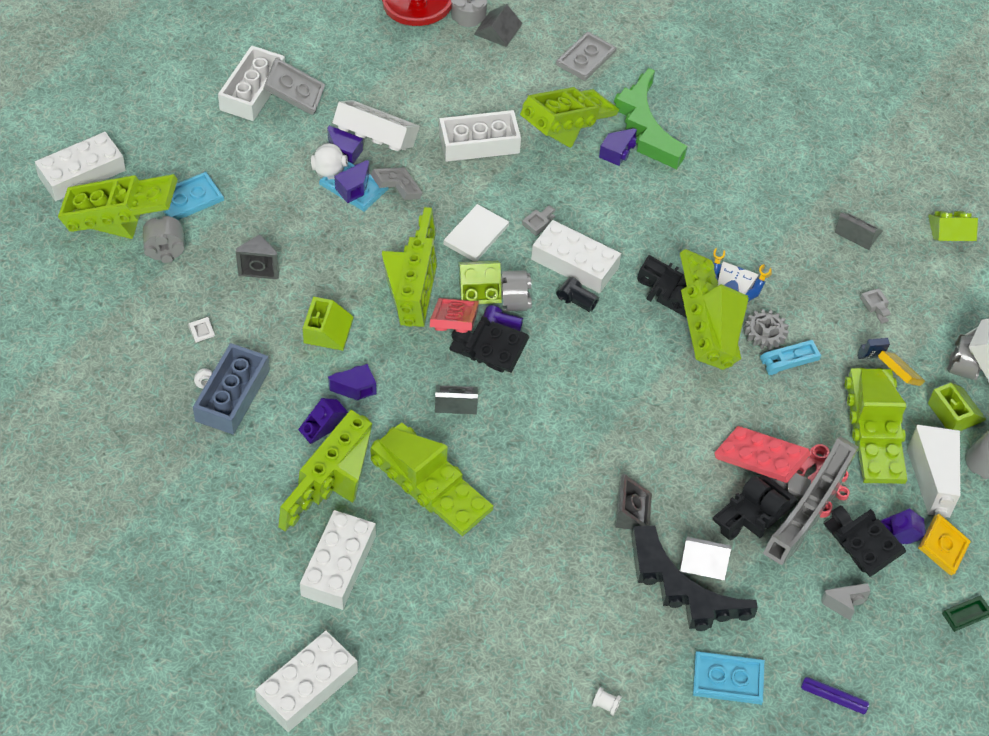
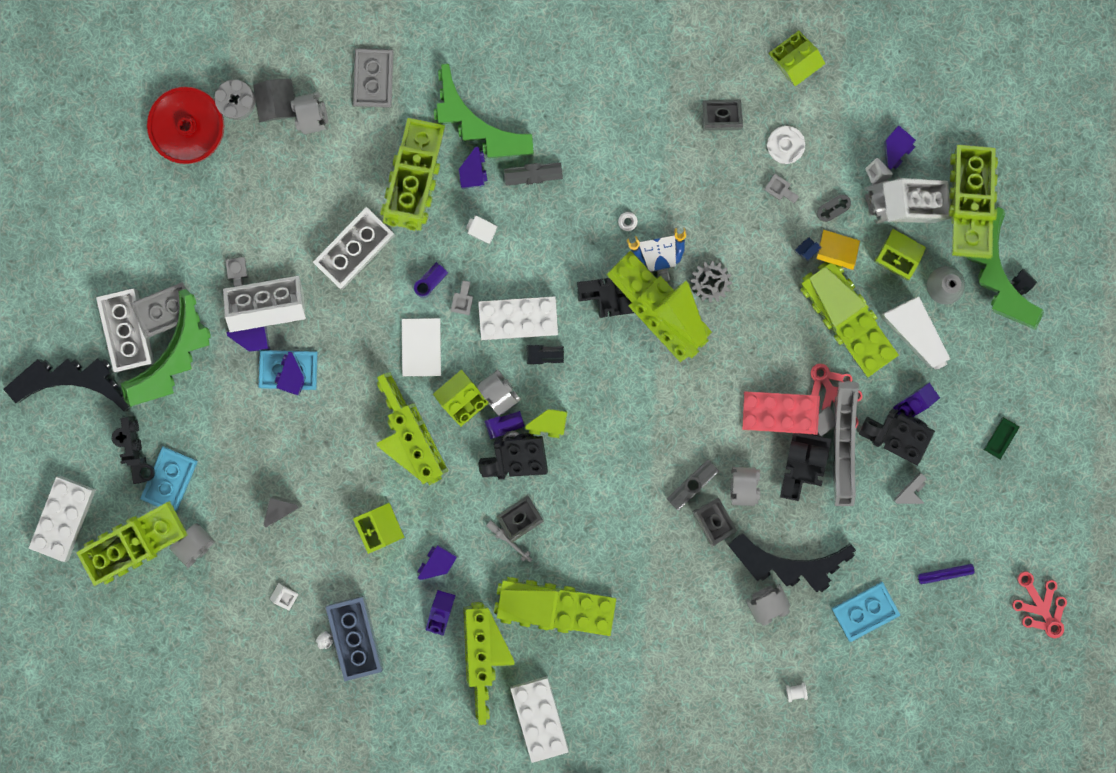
camera: 30 degrees left, 35 degrees up
(180, 85) = (39, 377): none -> black arch
(181, 149) = (132, 446): none -> black plate
(243, 121) = (157, 379): none -> bright green arch
(328, 161) = (253, 367): white plant -> none
(375, 100) = (236, 270): none -> light grey plate
(397, 178) = (321, 341): light grey plate -> none
(429, 397) = (499, 533): none -> light grey piece
(454, 315) = (471, 456): coral plate -> none
(515, 192) = (431, 279): none -> dark purple piece
(519, 41) = (310, 113): none -> light grey brick
(545, 335) = (550, 421): none -> lime slope
(594, 180) = (481, 229): none -> white slope
(624, 465) = (701, 475): none -> dark grey piece
(636, 599) = (768, 604): none -> light grey brick
(667, 176) = (533, 173): none -> dark grey piece
(685, 489) = (744, 486): none -> light grey brick
(705, 558) = (797, 541): slope -> none
(721, 246) = (623, 226): none -> white plate
(790, 357) = (745, 294): medium azure plate -> none
(907, 282) = (786, 150): none -> white tile
(916, 344) = (831, 204): none -> dark grey beam
(944, 544) = (956, 393): yellow tile -> none

